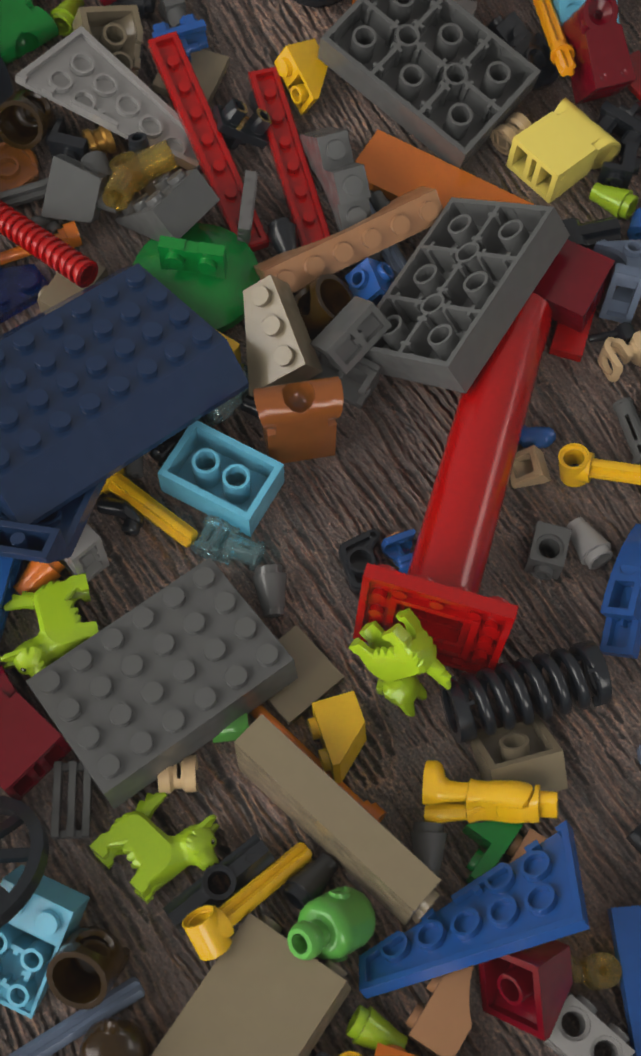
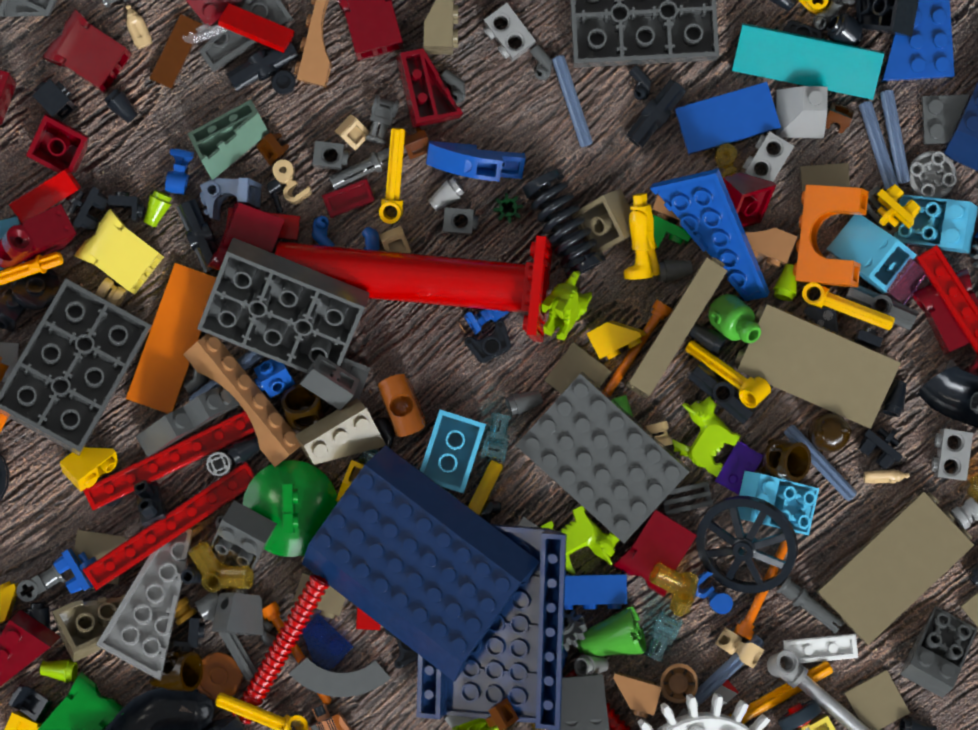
camera: 100 degrees left, 20 degrees up
(107, 892) = (739, 460): none -> dark purple piece
(247, 206) = (229, 480): flat silver tile -> none
(271, 205) = (219, 464): none -> light grey wheel
(556, 378) = (320, 230): none -> blue arm
(557, 611) = (509, 215): none -> dark green gear
(598, 421) = (348, 198): none -> dark red tile

